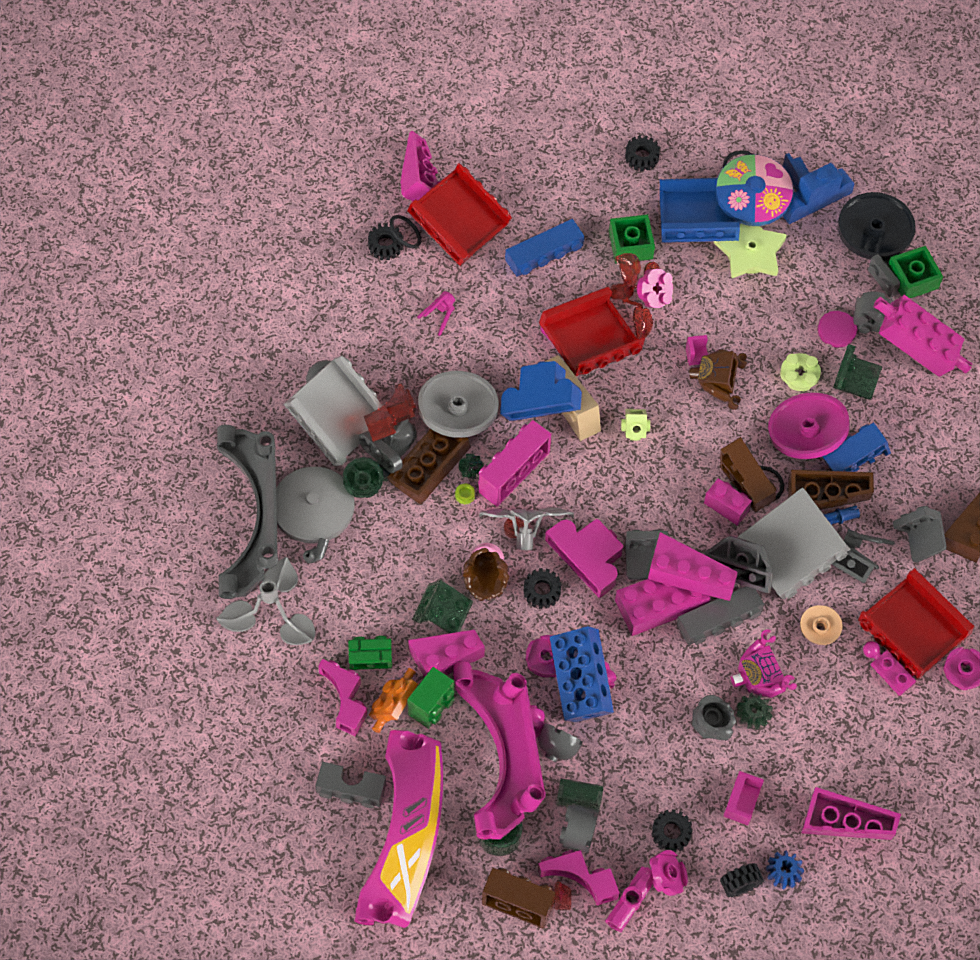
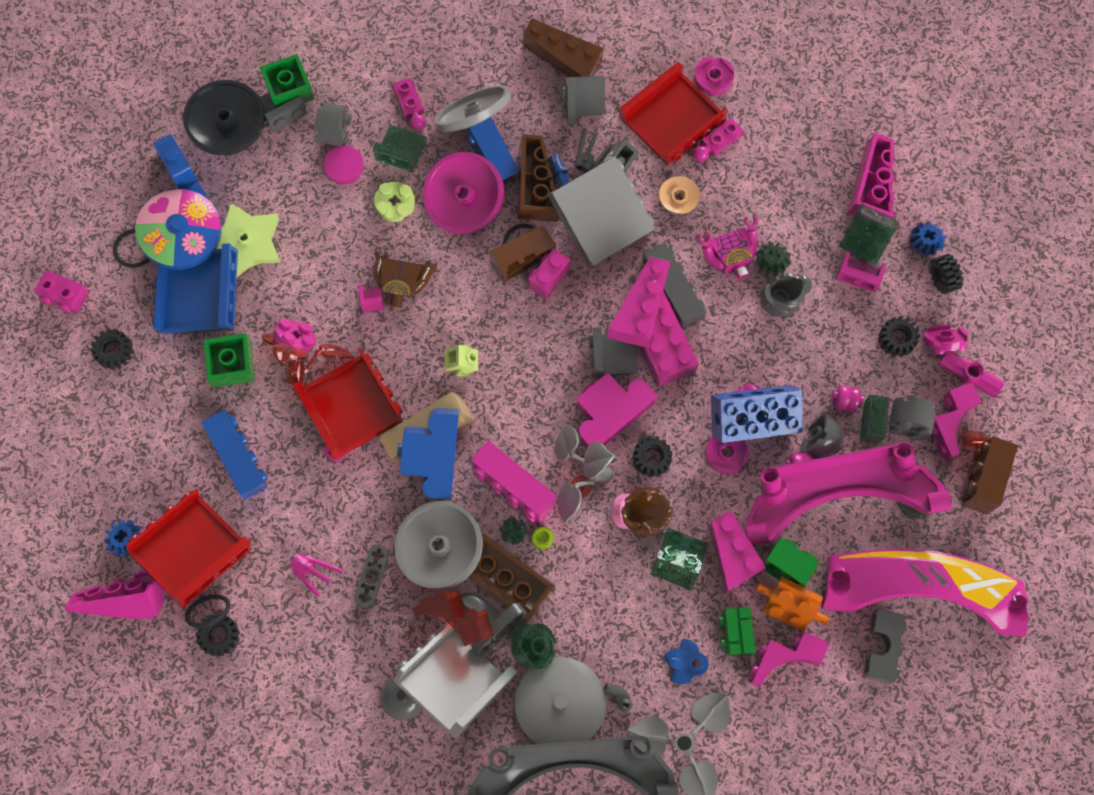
camera: 90 degrees left, 10 degrees up
(346, 608) = (682, 662): none -> blue plate
(420, 347) = (372, 594): none -> dark grey beam
(475, 166) = (118, 533): none -> blue gear
(602, 770) = (847, 399): none -> dark pink piece
(694, 112) = (61, 291): none -> dark pink brick
(747, 559) = (627, 258): dark grey wedge -> none
(782, 801) = (869, 234): none -> clear green brick
(795, 168) = (142, 192): blue panel -> none
(897, 428) = (472, 108): none -> light grey dish
(908, 384) = (410, 103): none -> dark pink plate
(921, 336) = (365, 80): dark pink brick -> none

